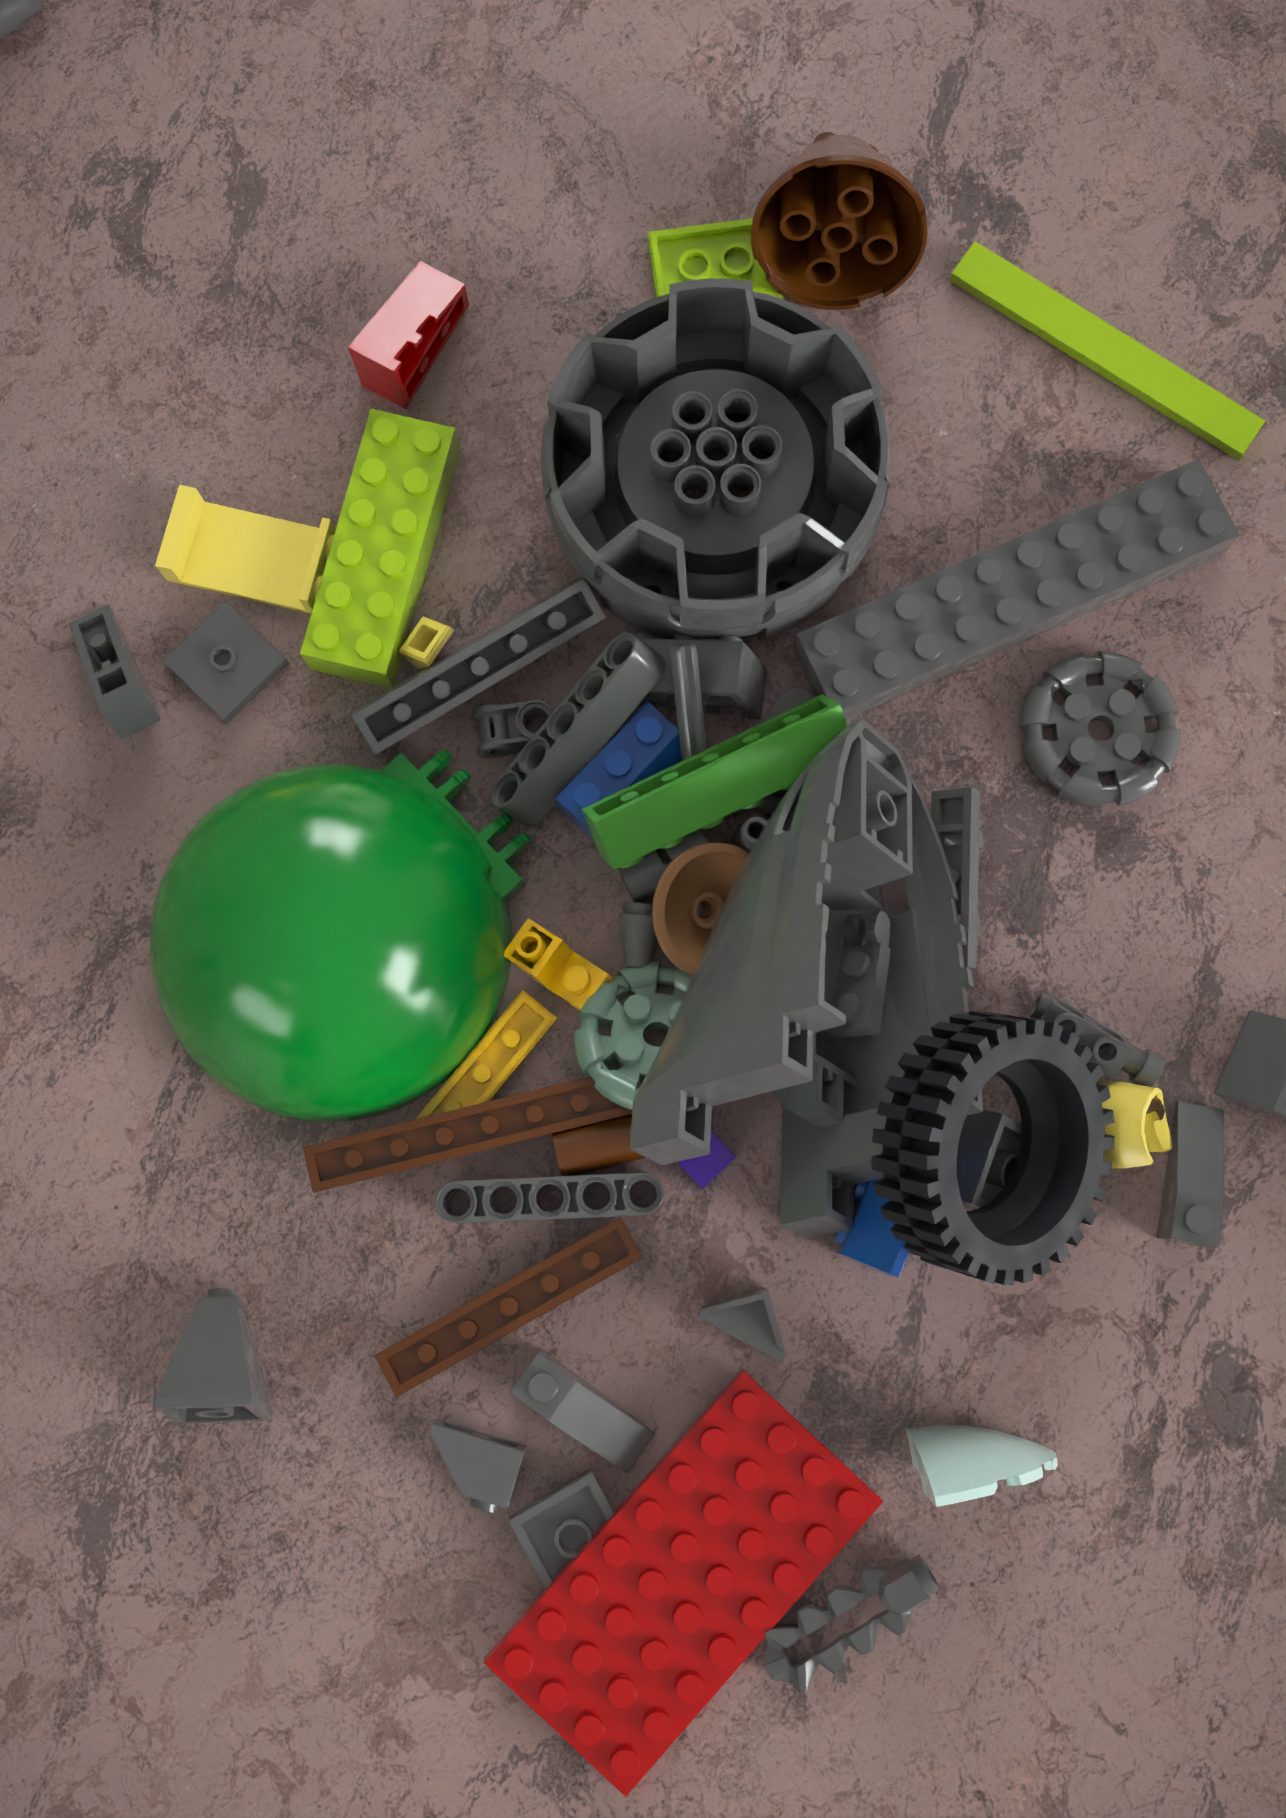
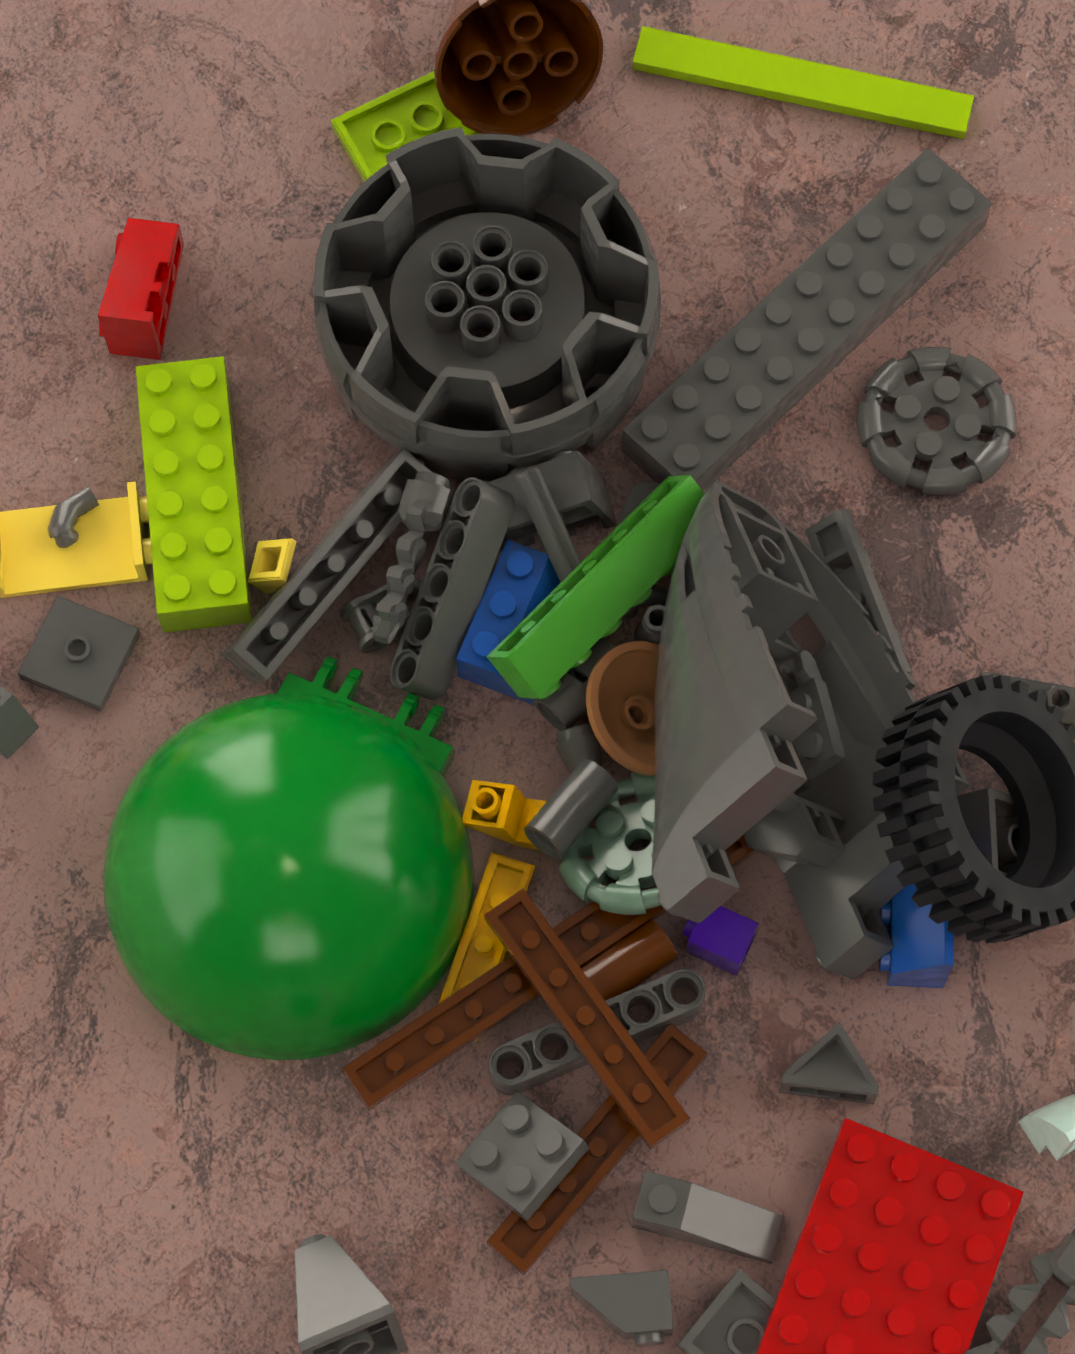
camera: 25 degrees left, 10 degrees down
(259, 527) = (66, 514): none -> dark grey arm
(436, 1288) = (522, 1155): none -> dark grey plate
(539, 1191) = (587, 1019): none -> reddish brown plate
(575, 647) = (422, 510): none -> dark grey sword
(605, 983) = (571, 809): none -> dark grey pin

